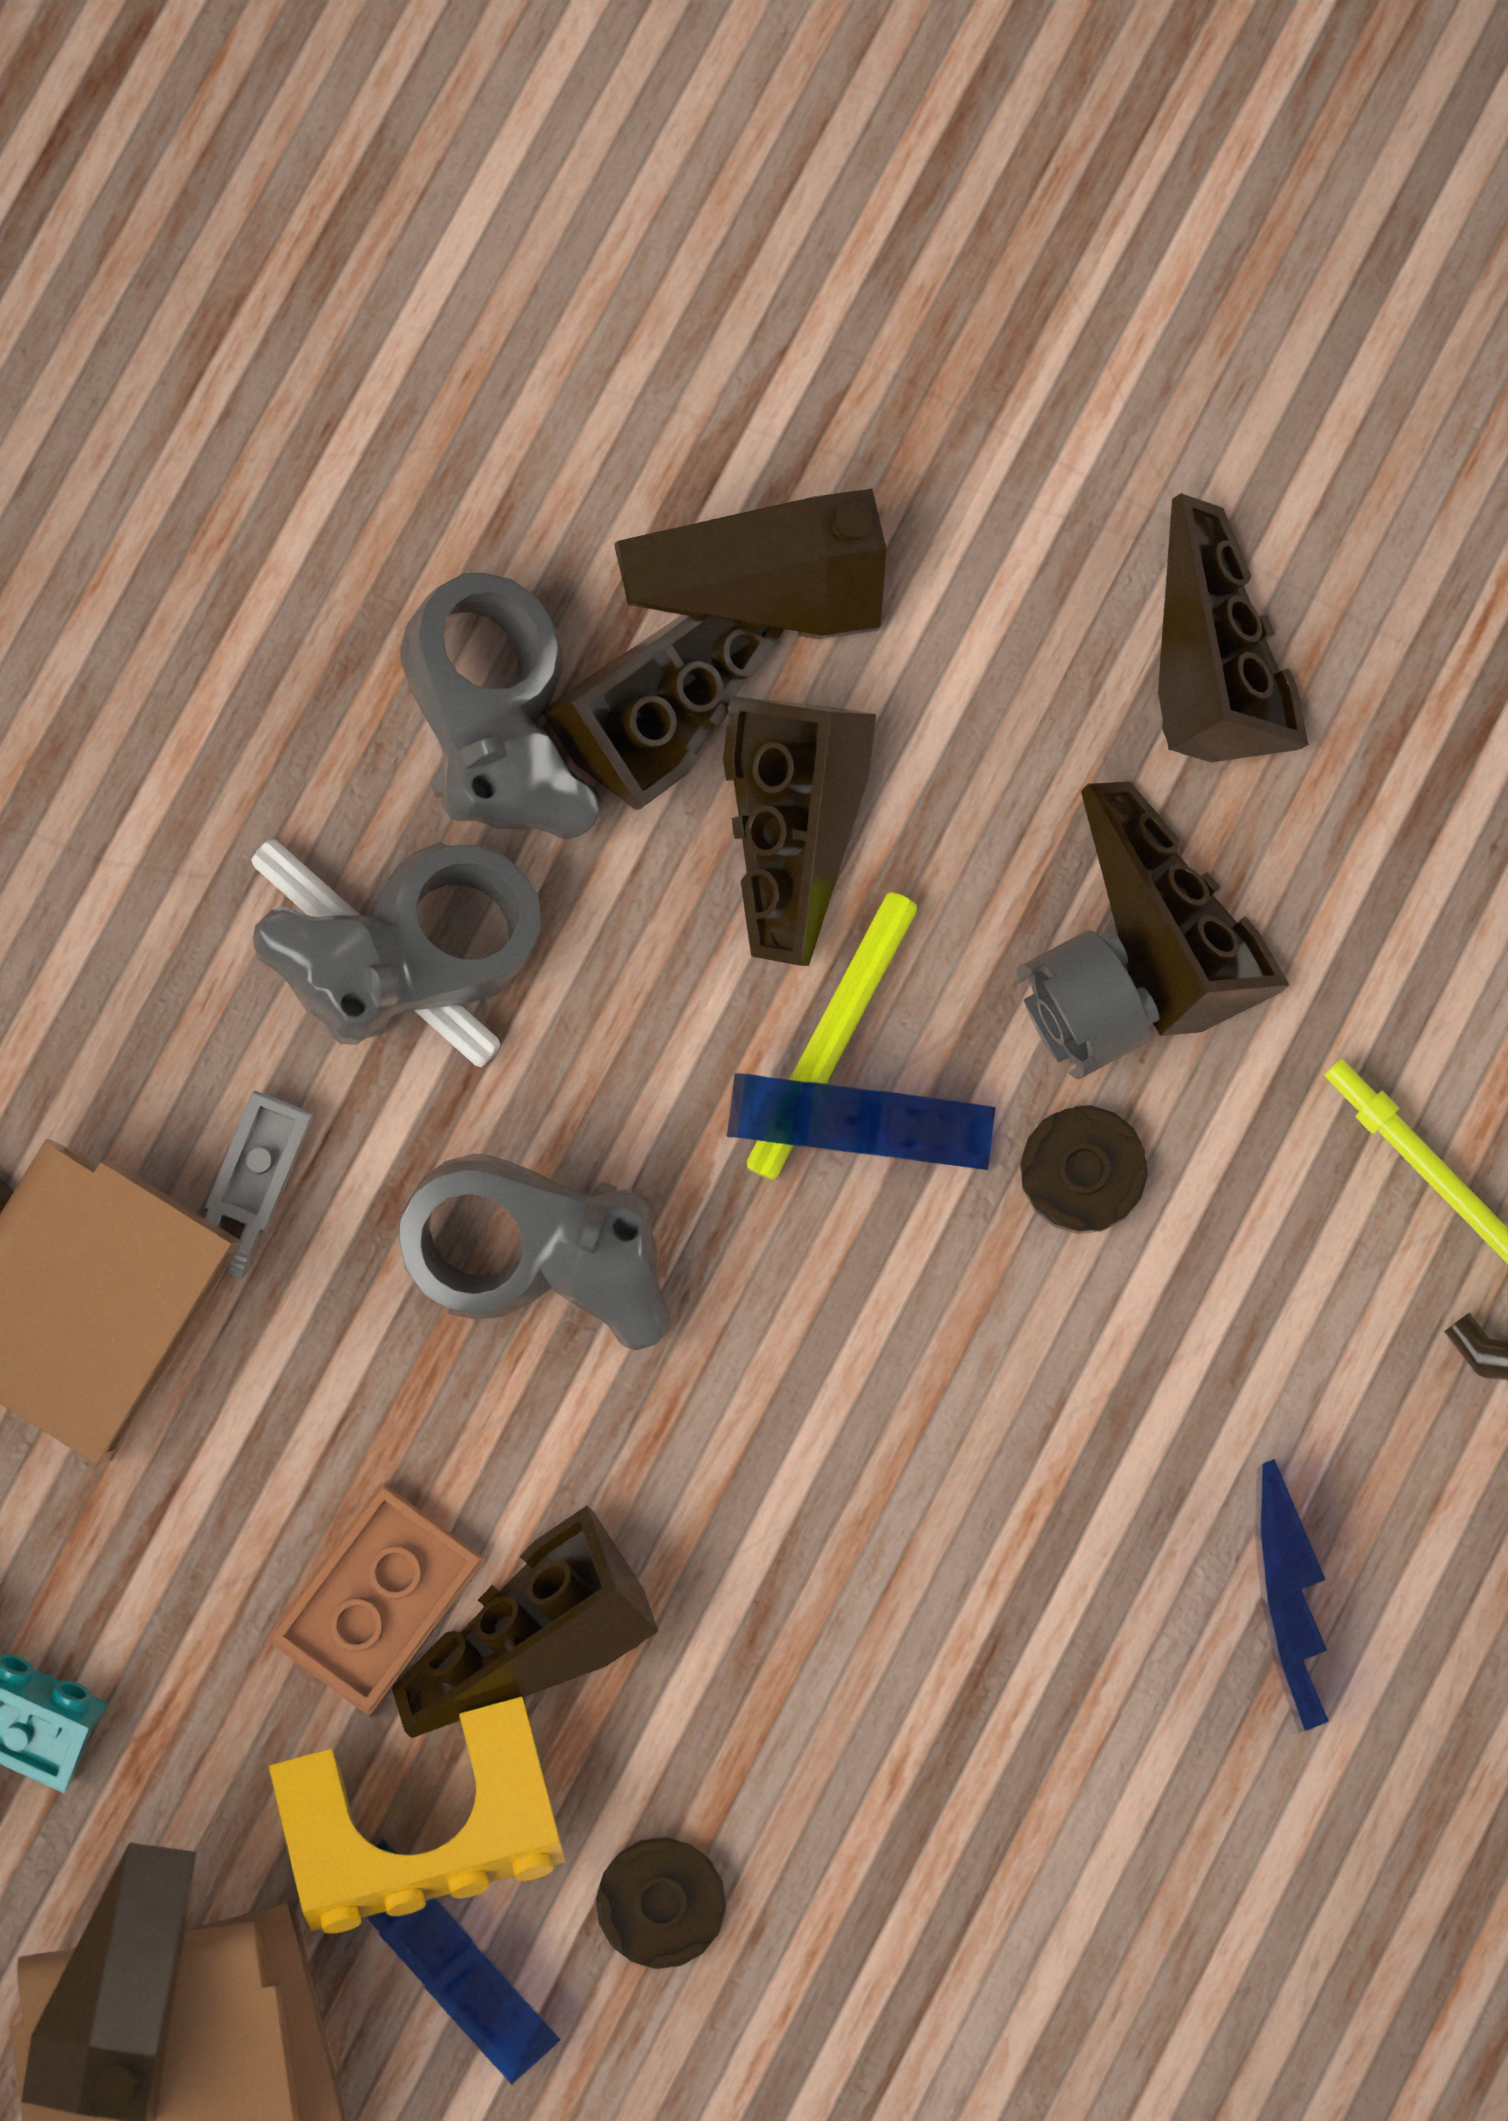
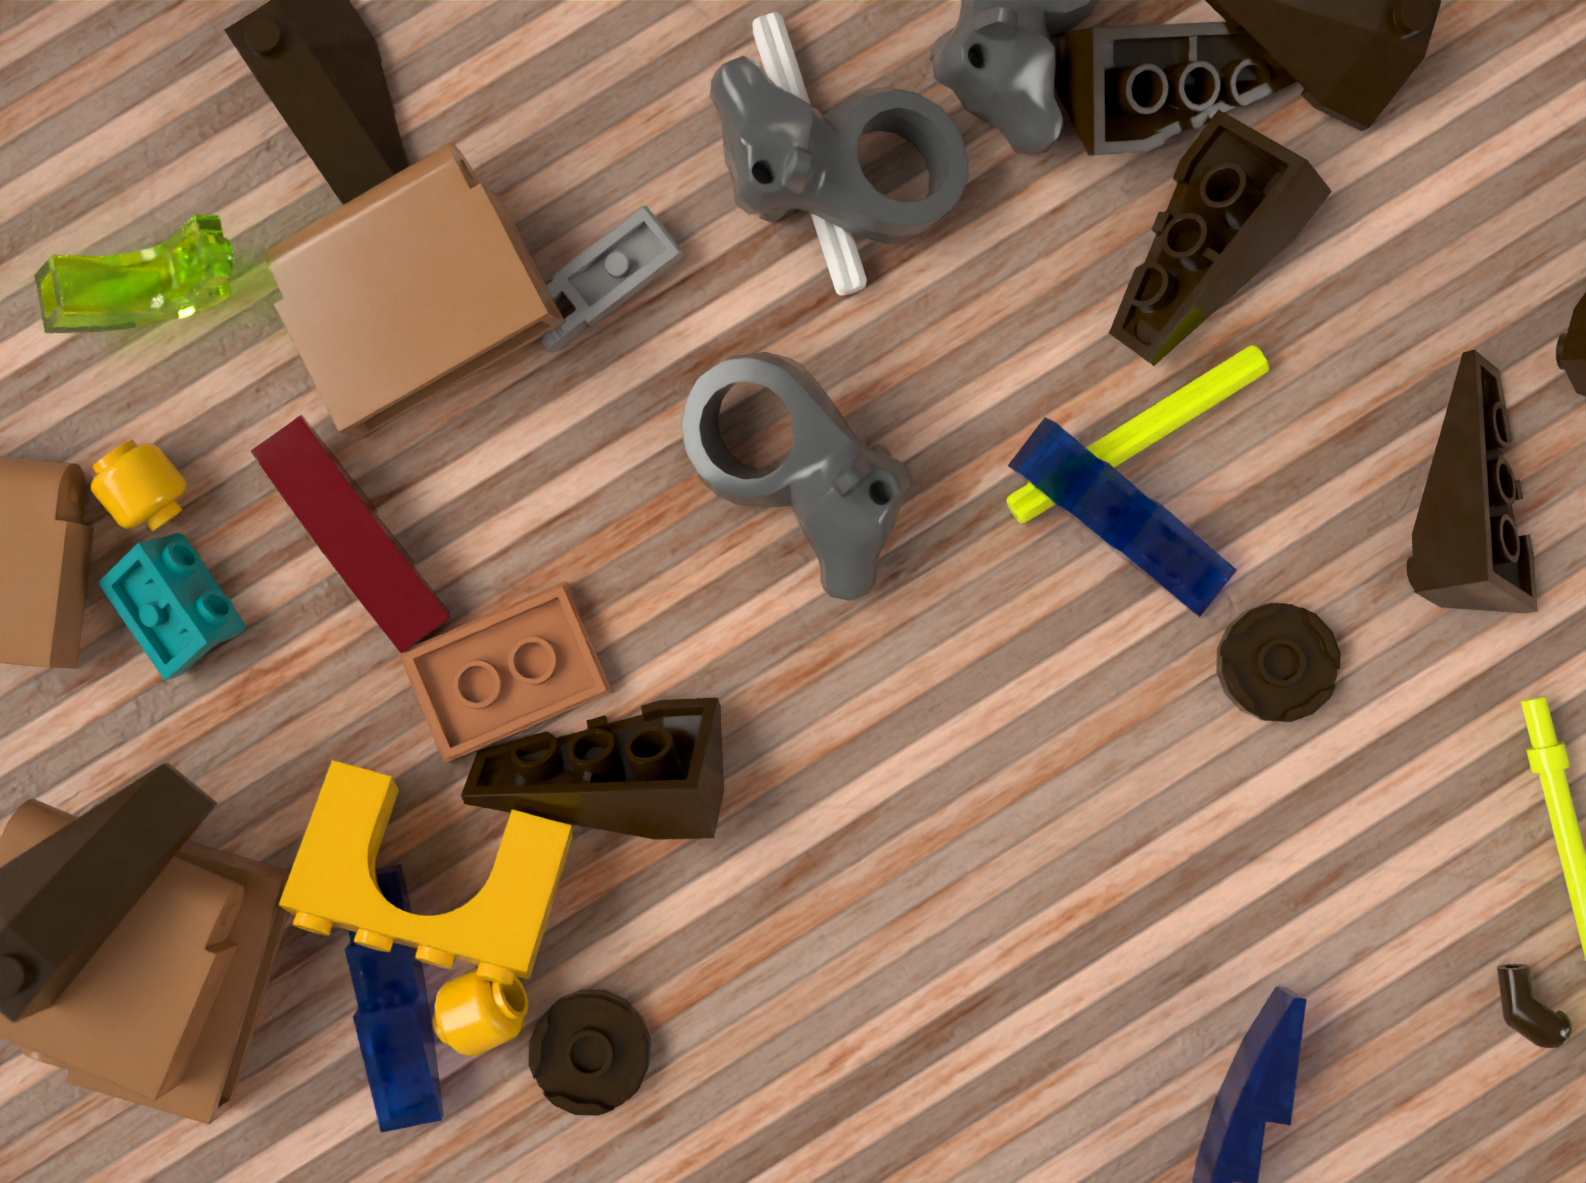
camera: 30 degrees right, 5 degrees up
(158, 1553) = (350, 533): none -> dark red slope
(537, 1921) = (478, 1013): none -> yellow head
(1087, 1002) = (1371, 529): dark grey brick -> none

